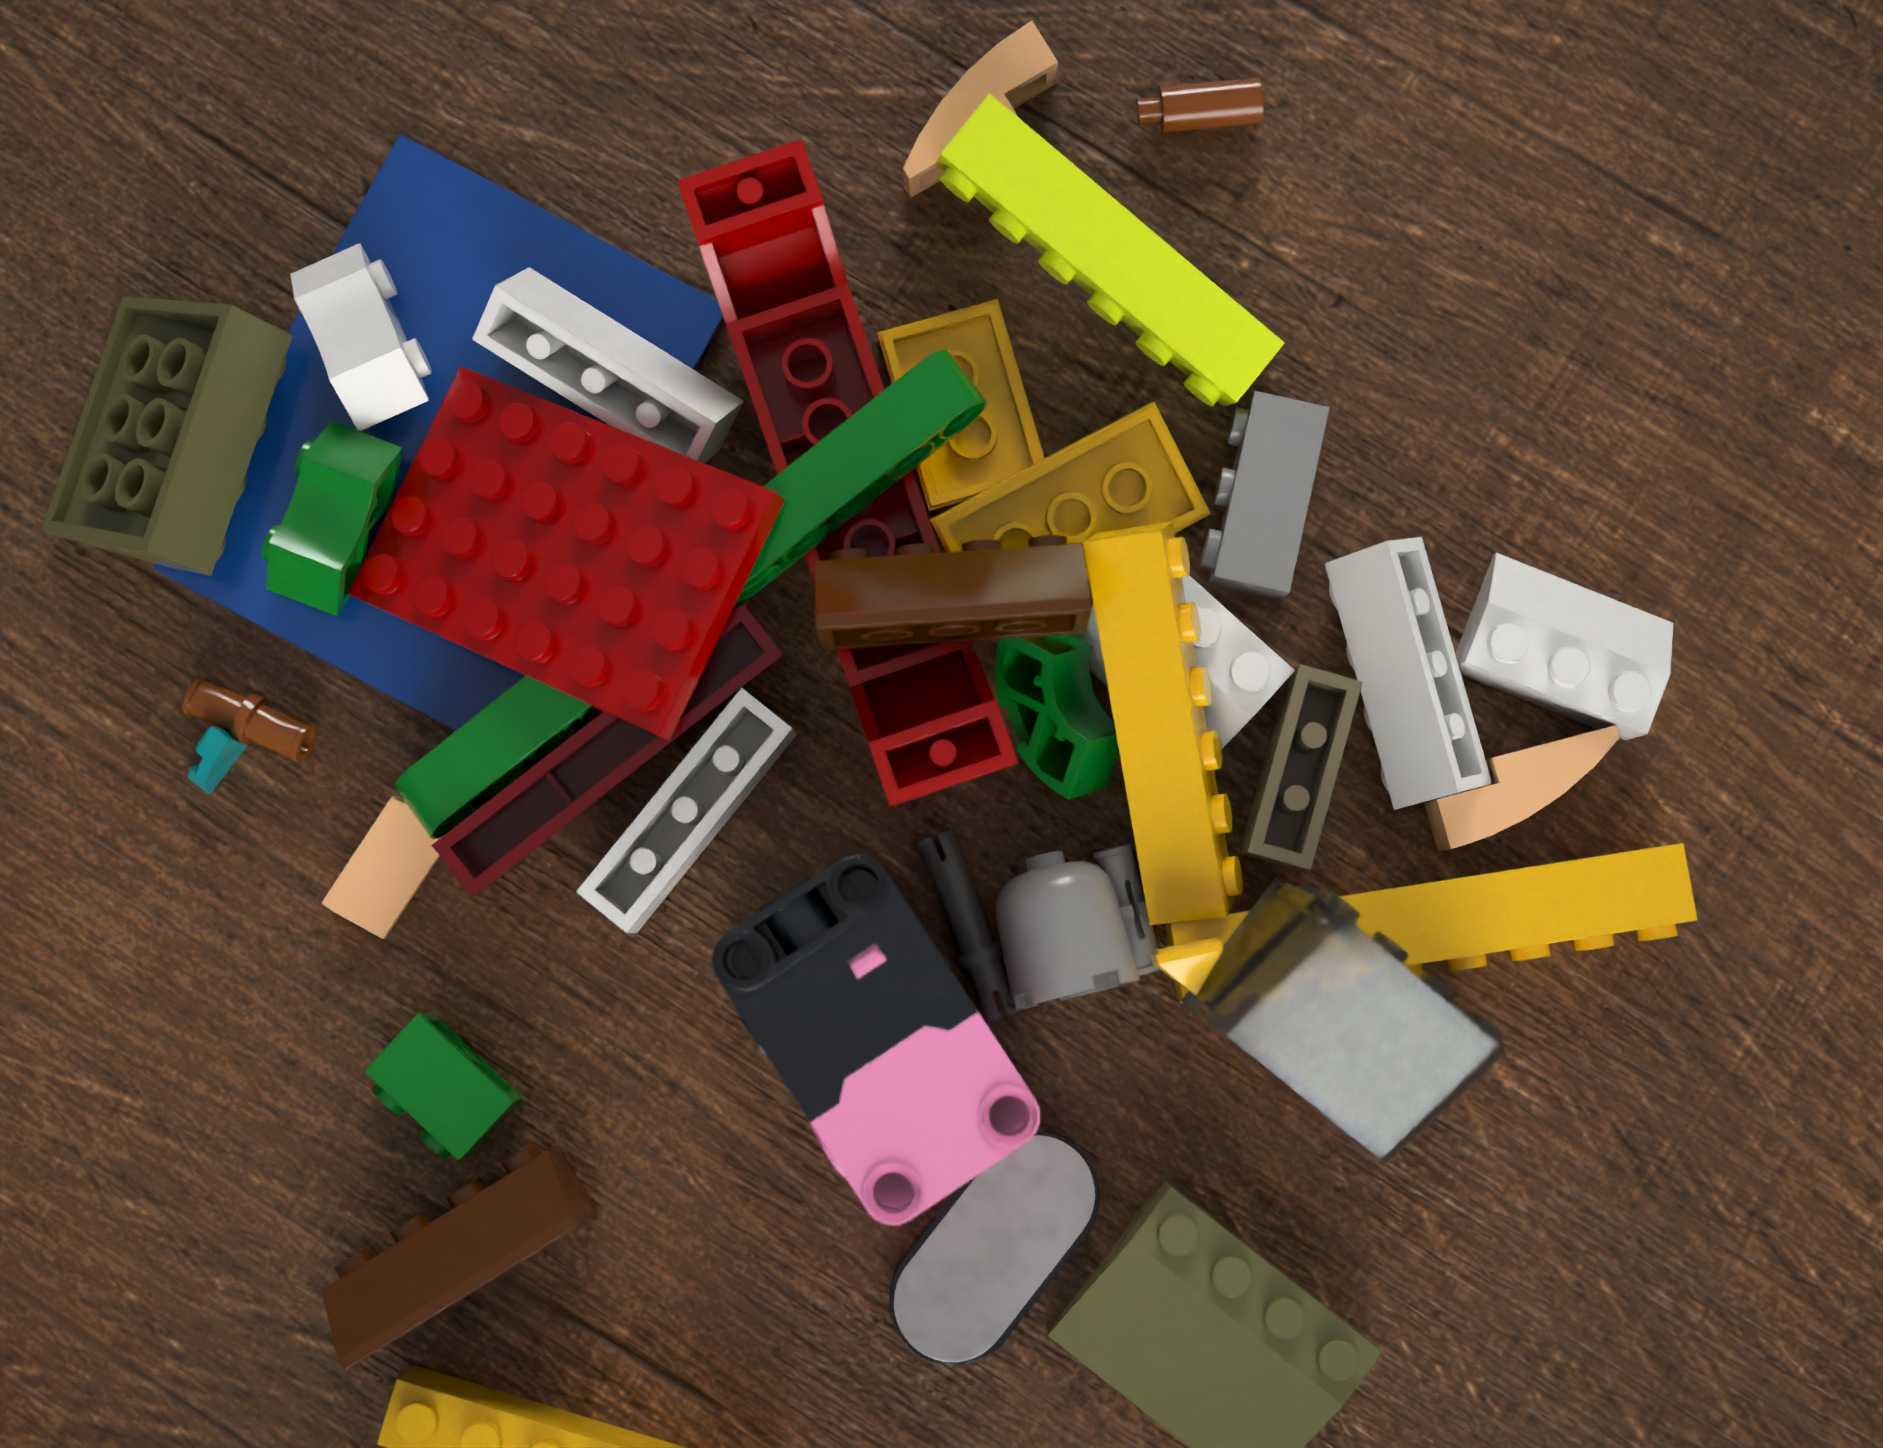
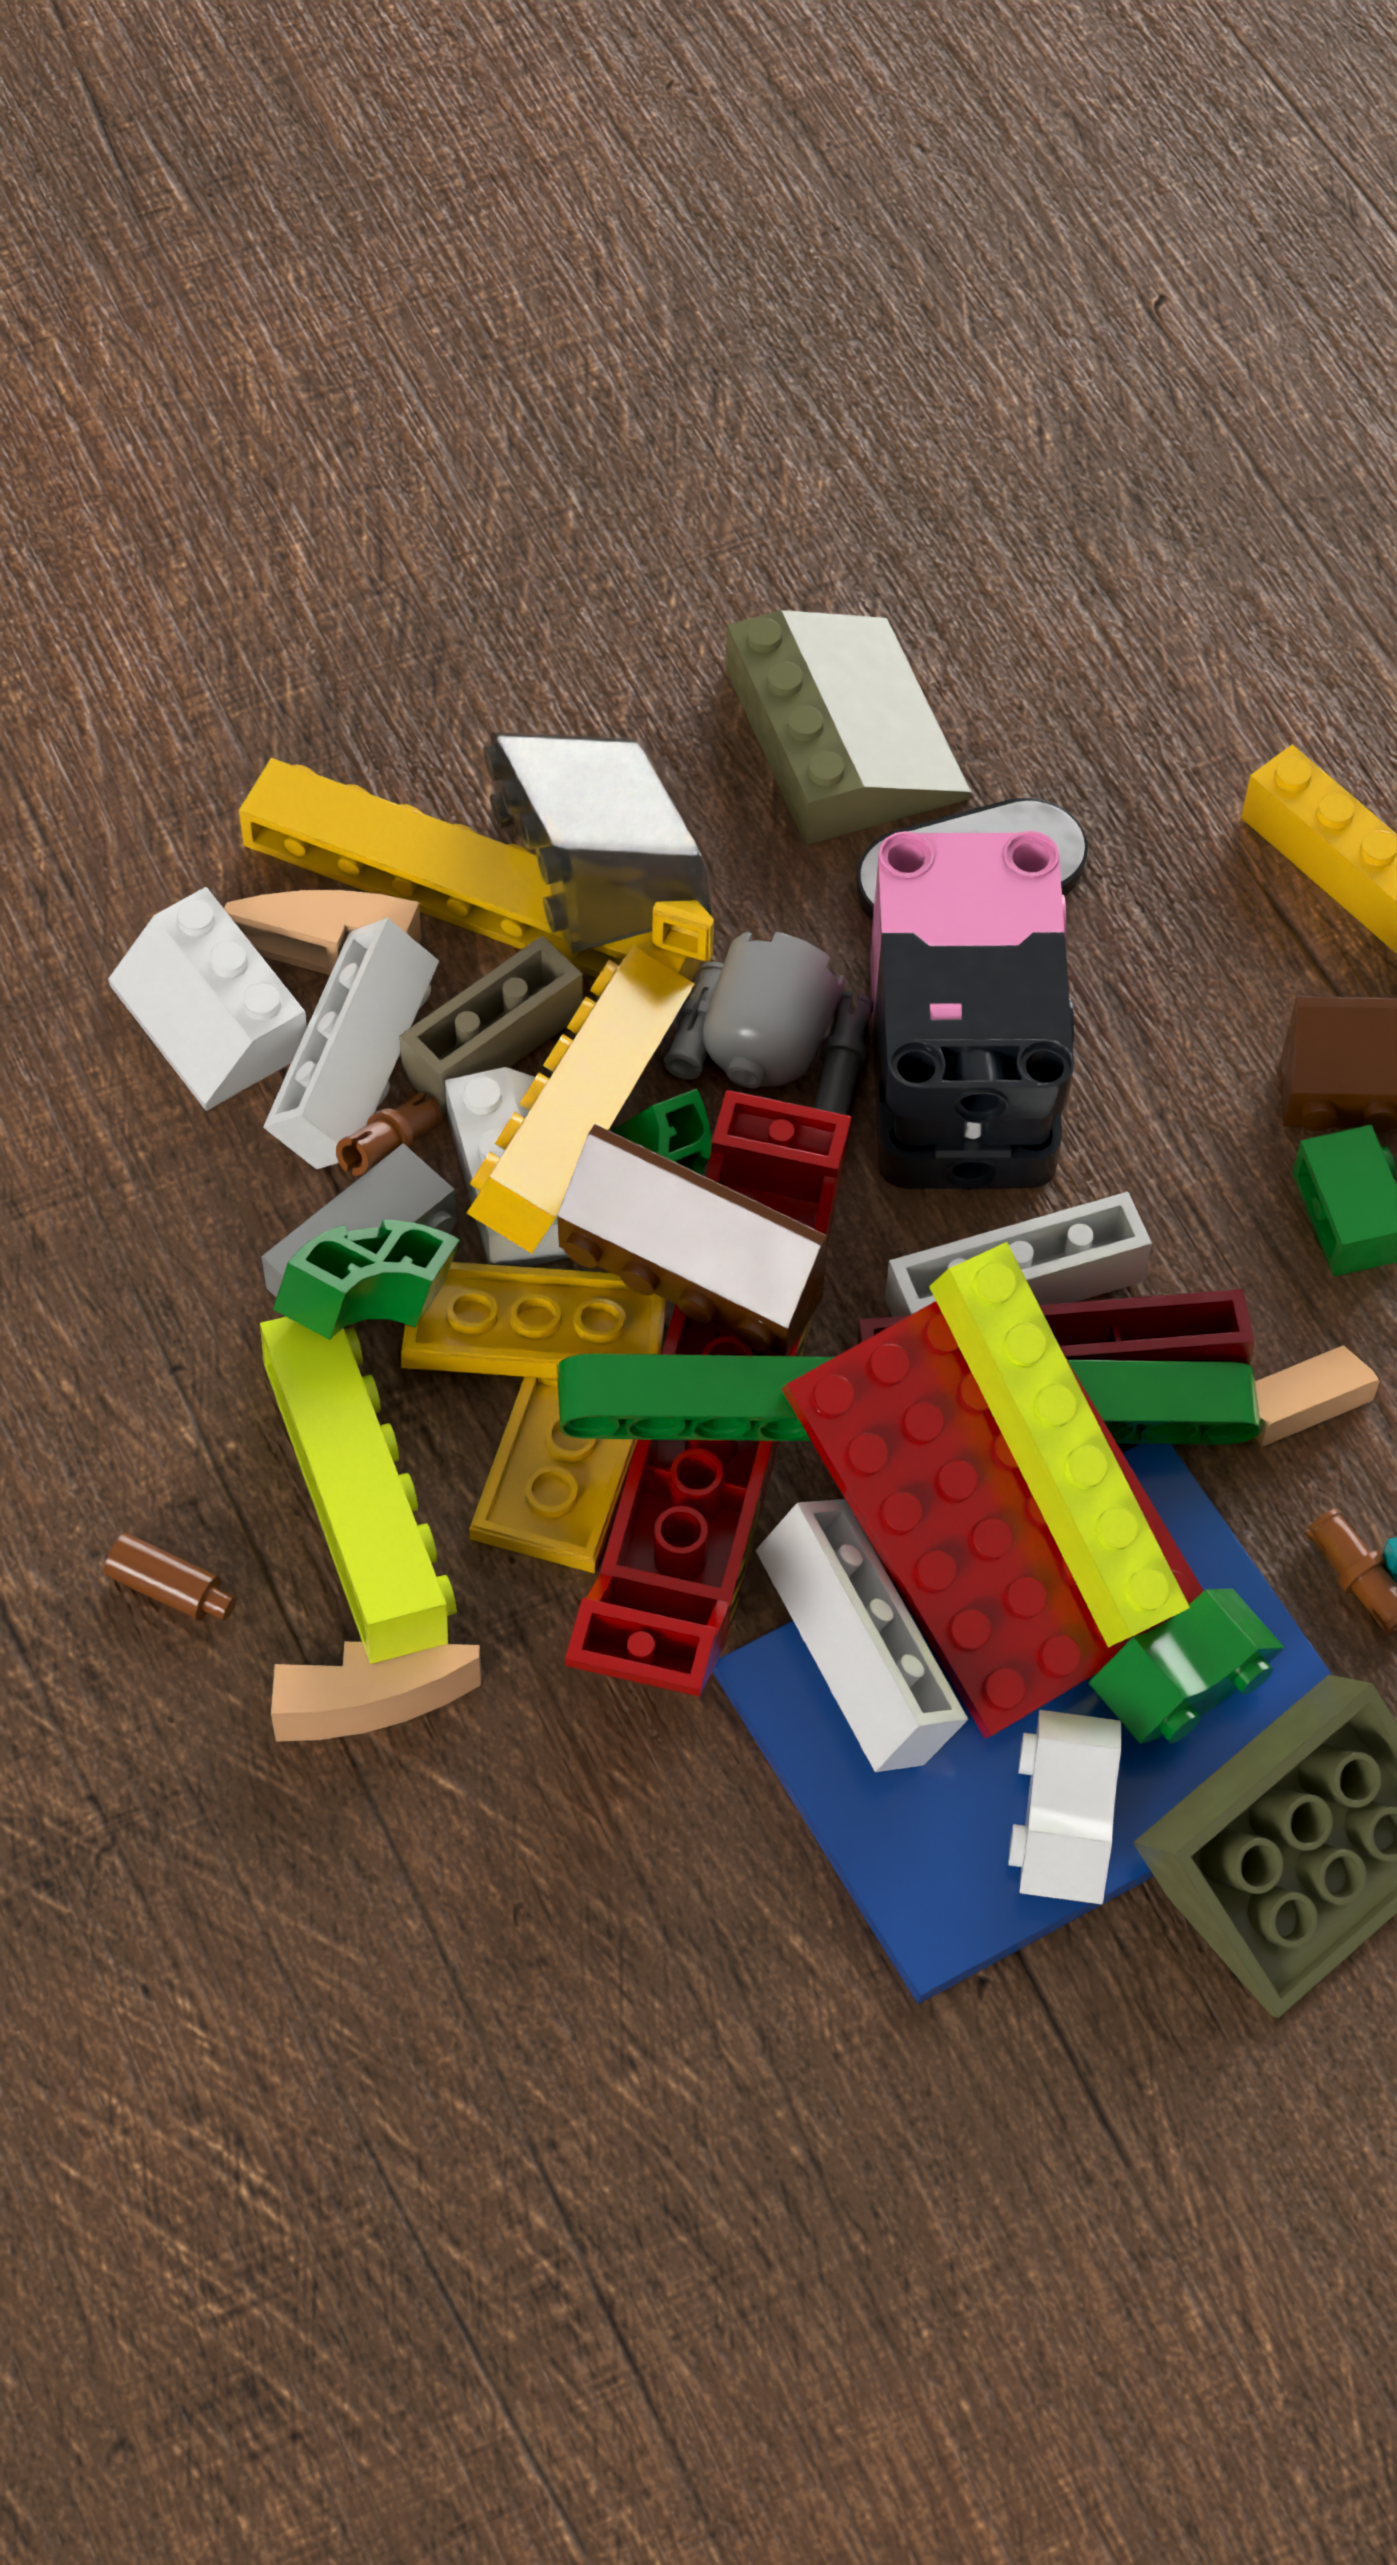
camera: 150 degrees left, 25 degrees down
(520, 588) = (1058, 1444): none -> neon yellow brick
(1220, 422) = (365, 1276): none -> green brick
(1312, 603) = (387, 1131): none -> dark orange pin

